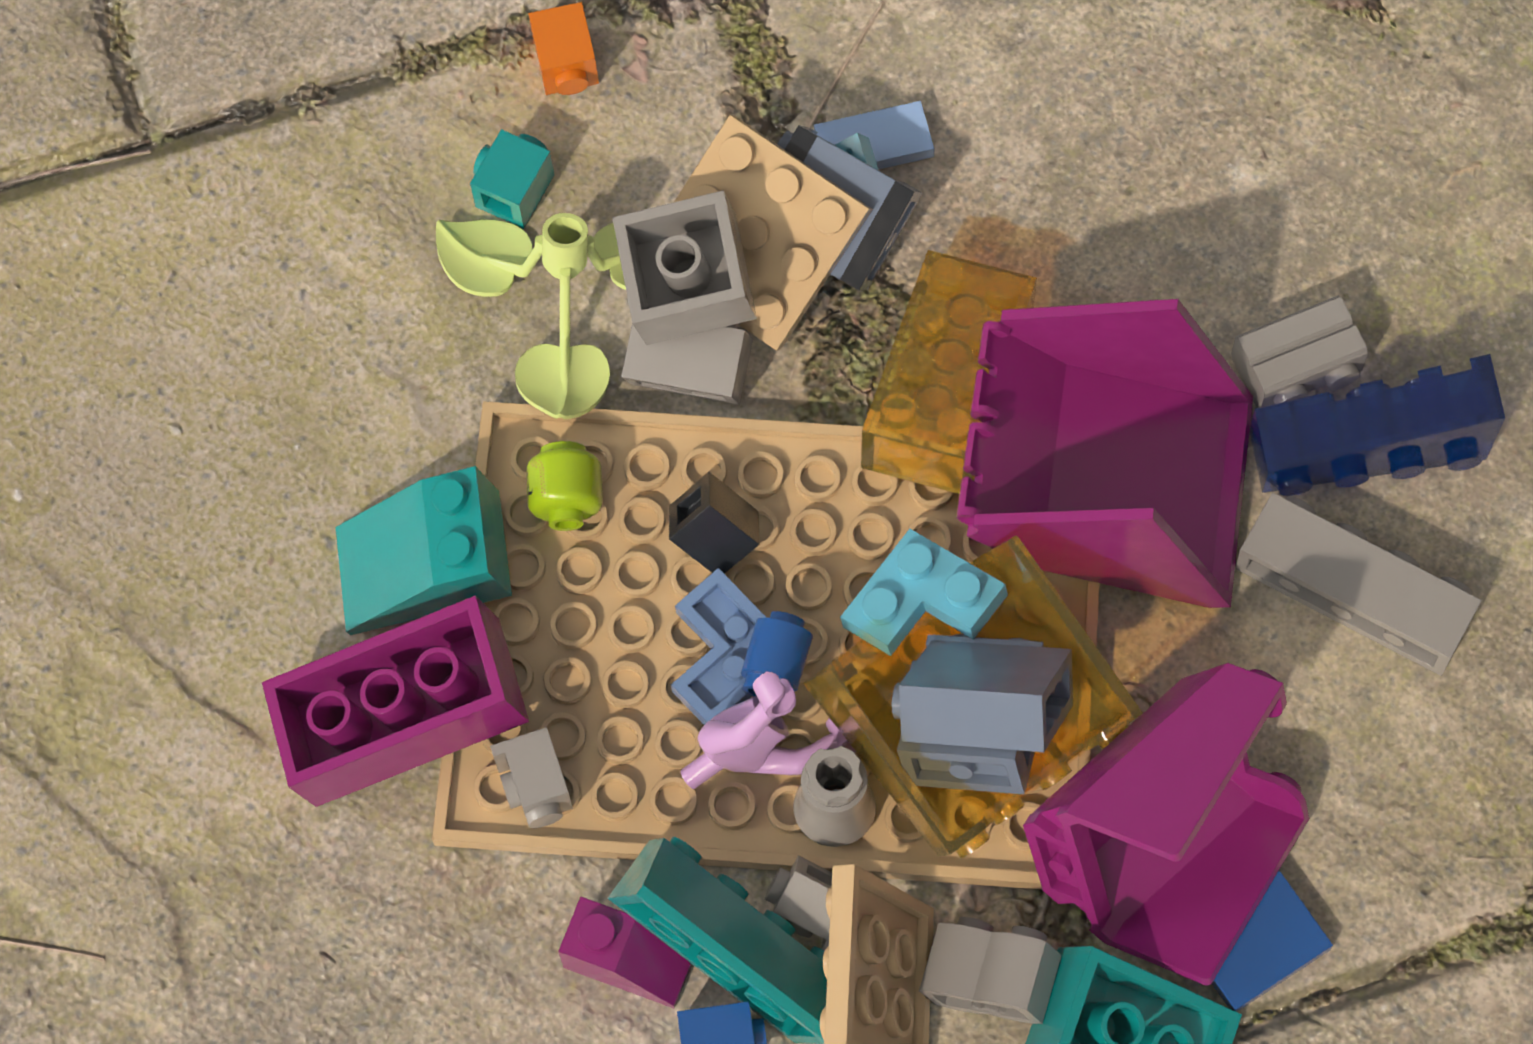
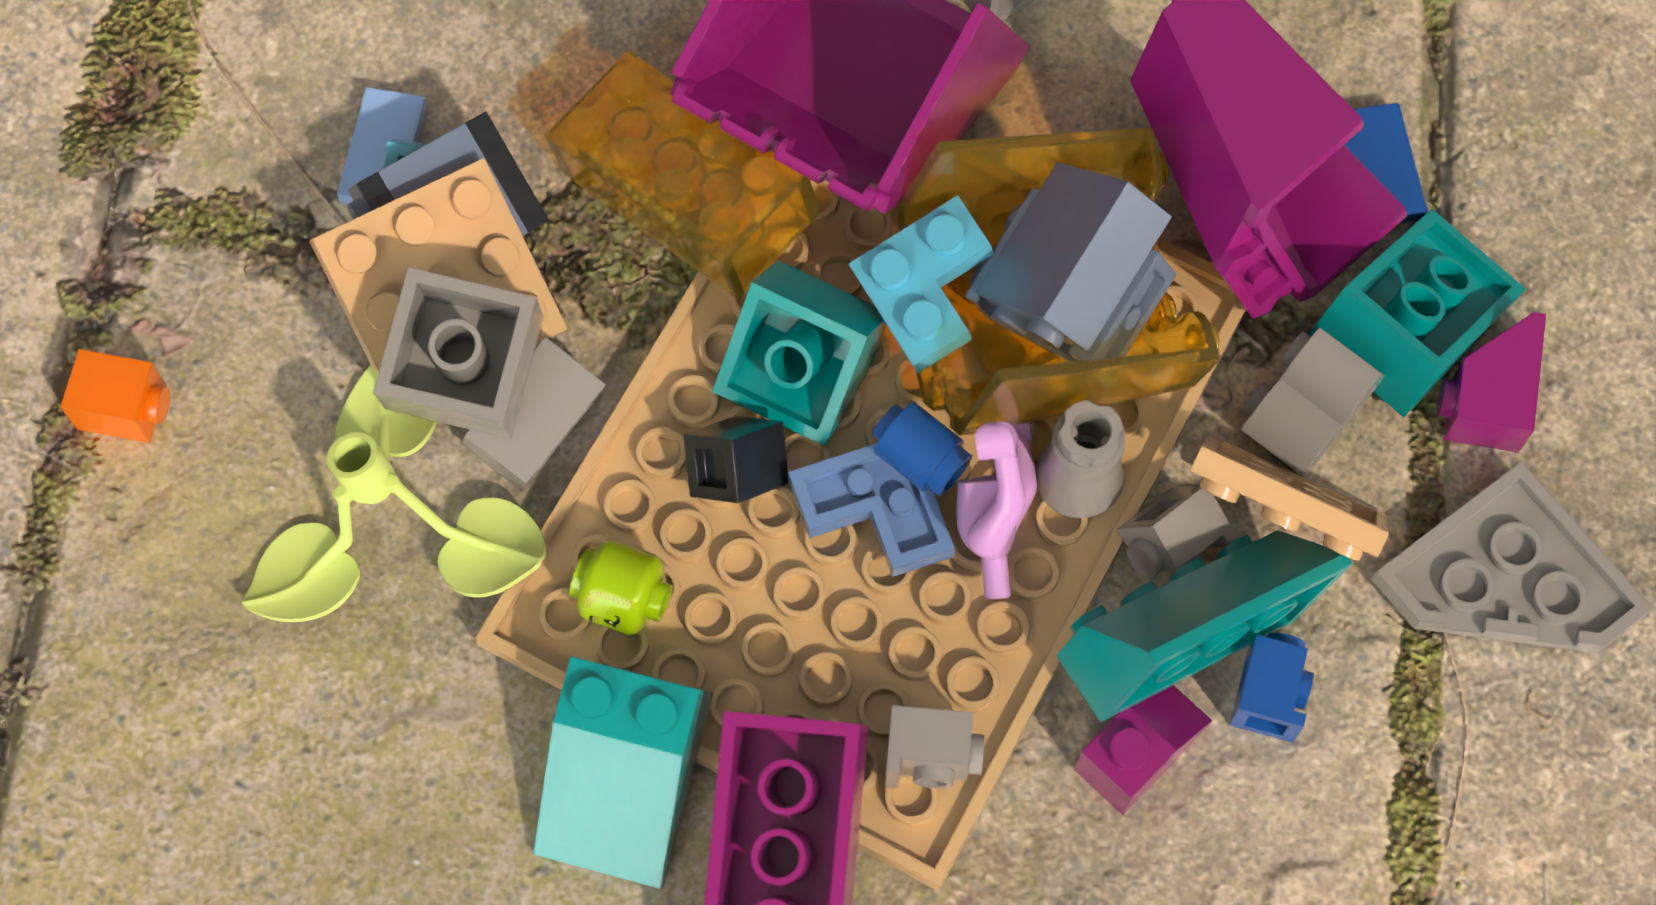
camera: 70 degrees left, 0 degrees up
(511, 177) = (232, 507): teal brick -> none
(830, 530) = (799, 351): none -> teal slope

